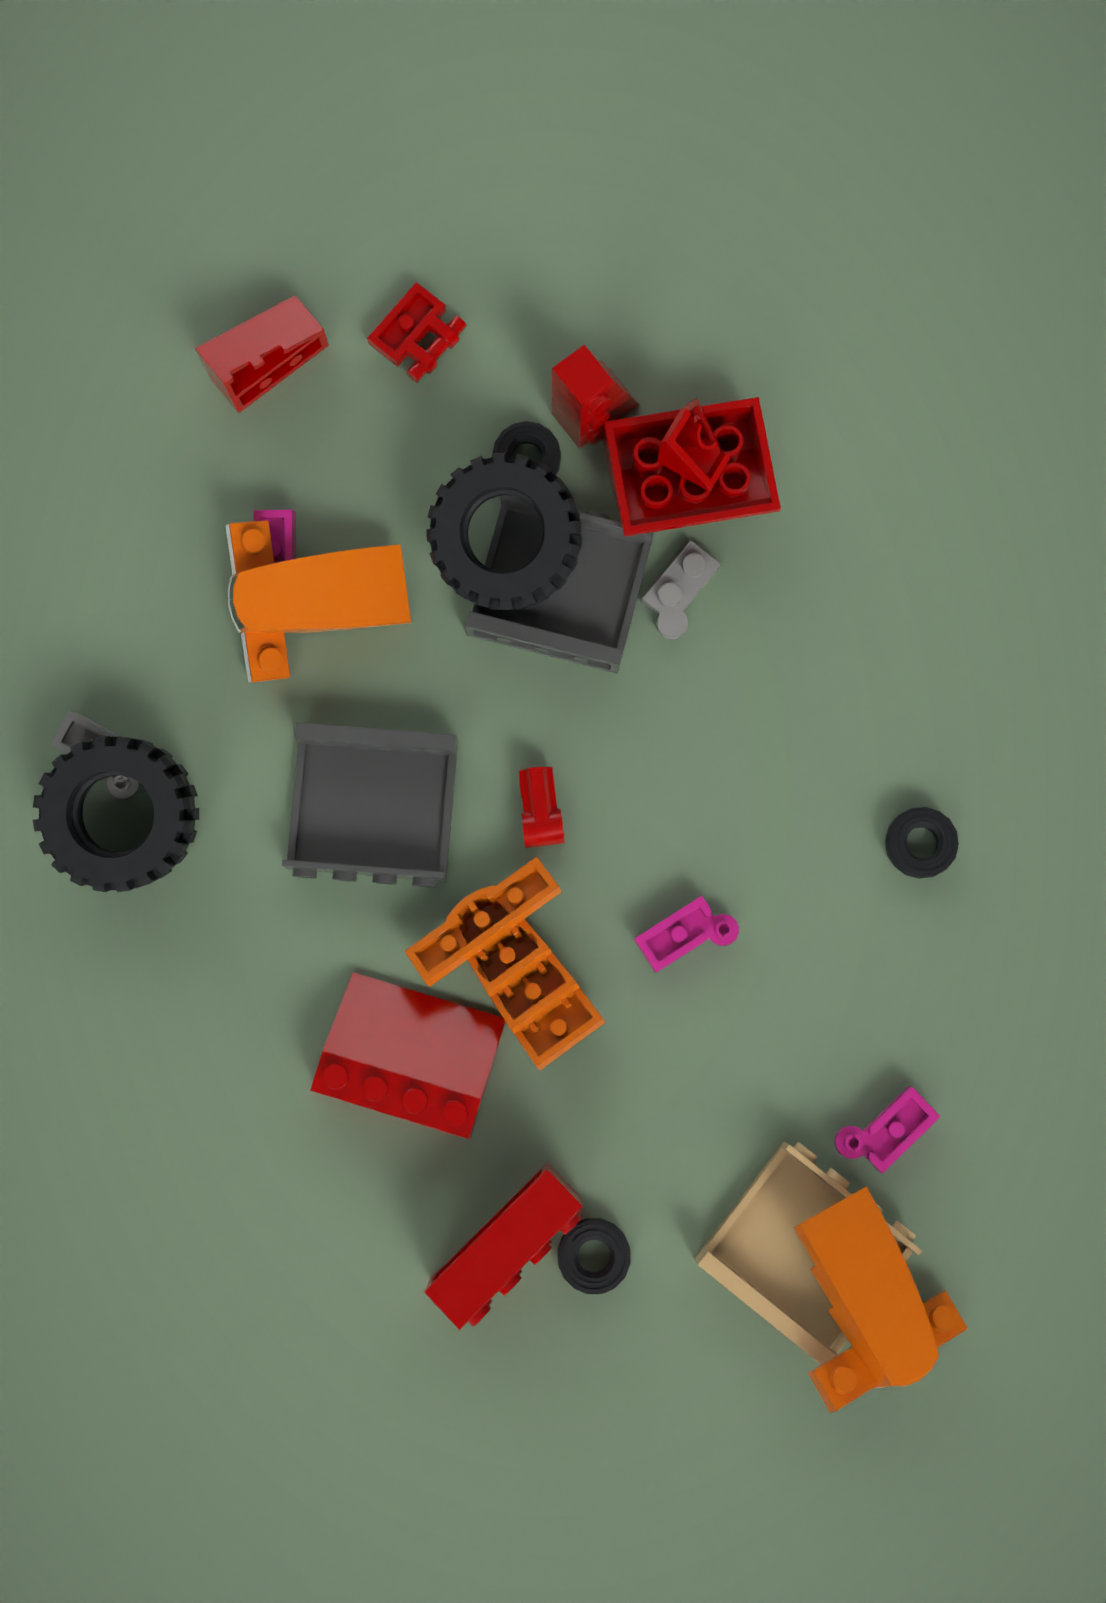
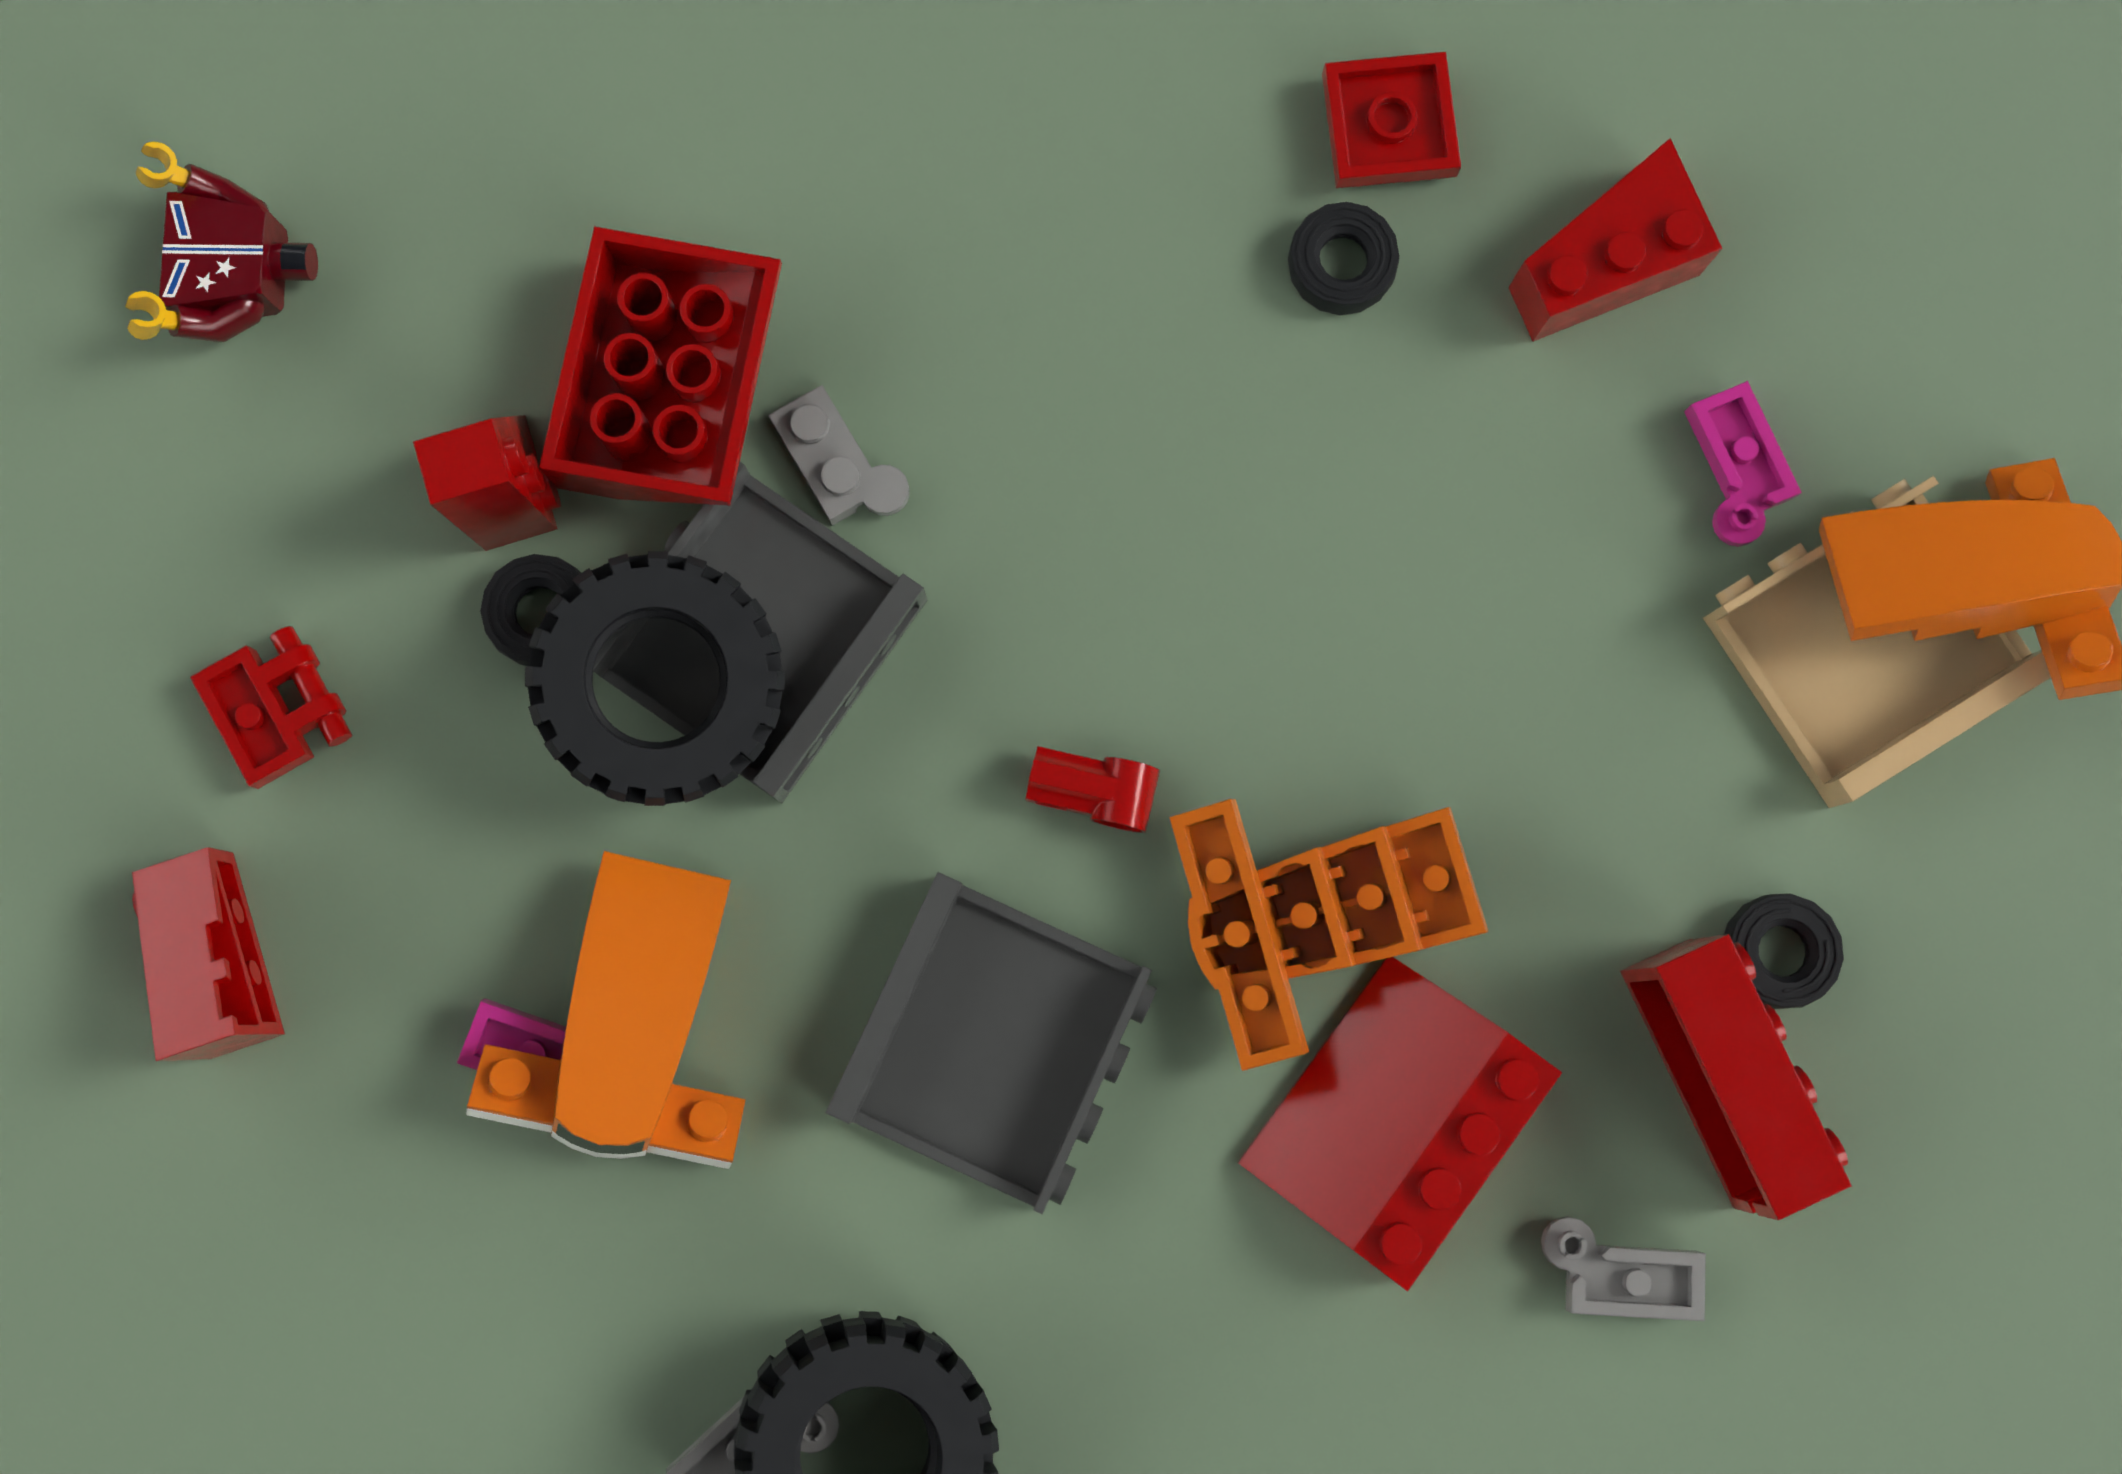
camera: 70 degrees left, 0 degrees up
(365, 1224) = (1625, 1278): none -> light grey hinge
(662, 200) = (219, 257): none -> dark red torso
(684, 932) = (1356, 644): dark pink hinge -> none
(692, 447) = (640, 349): red slope -> none
(992, 1007) = (1619, 249): none -> red wedge
(1021, 840) = (1391, 120): none -> red plate

